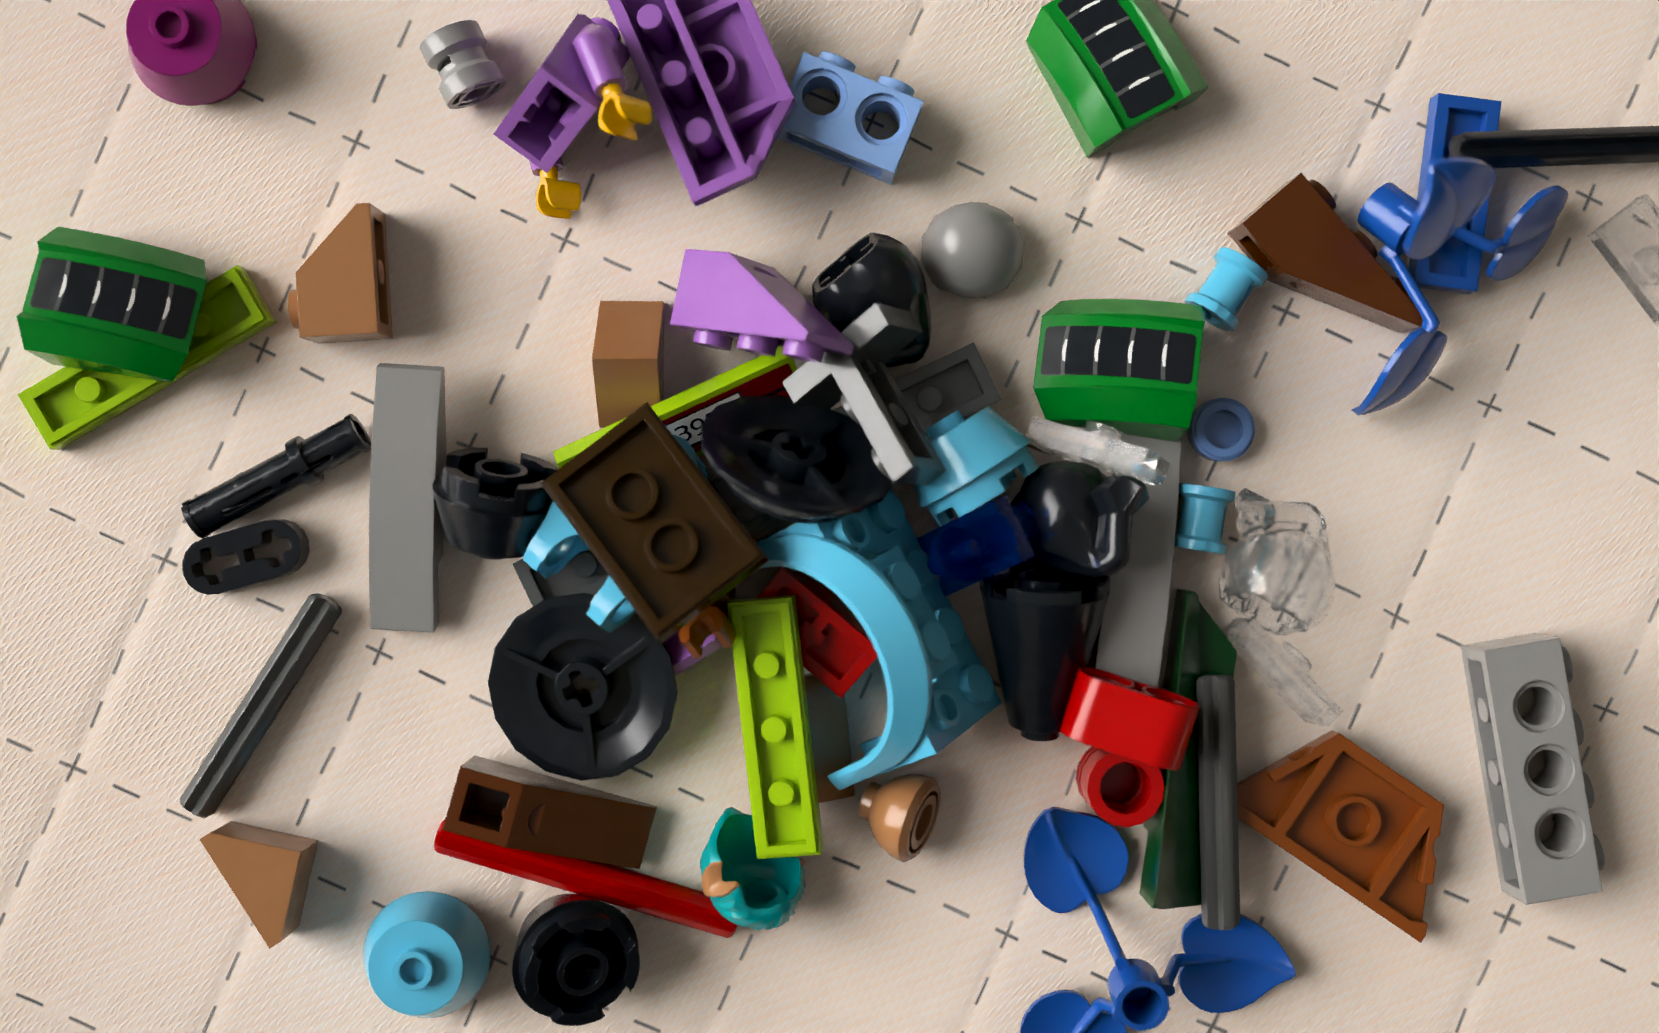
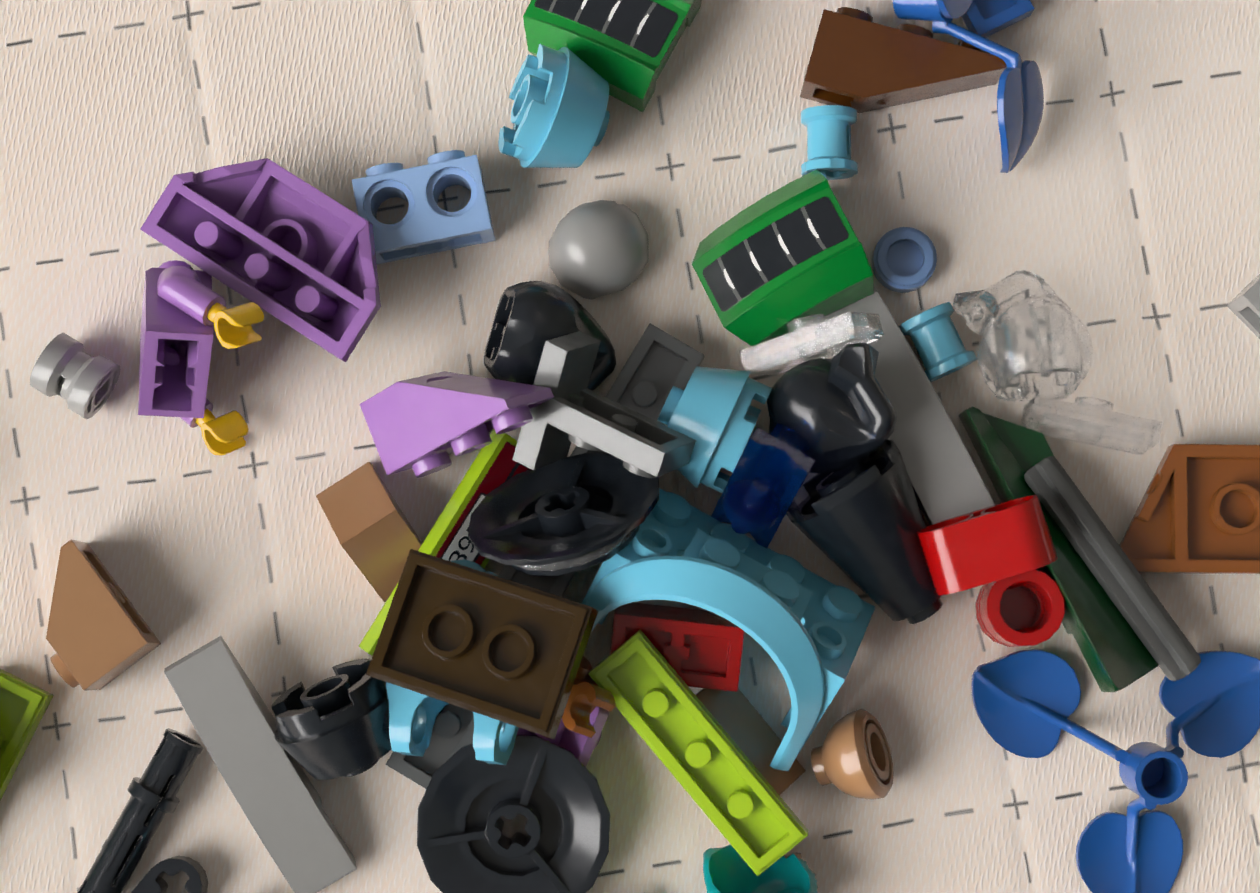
camera: 25 degrees left, 5 degrees down
(1015, 108) = (555, 111): none -> medium azure cone

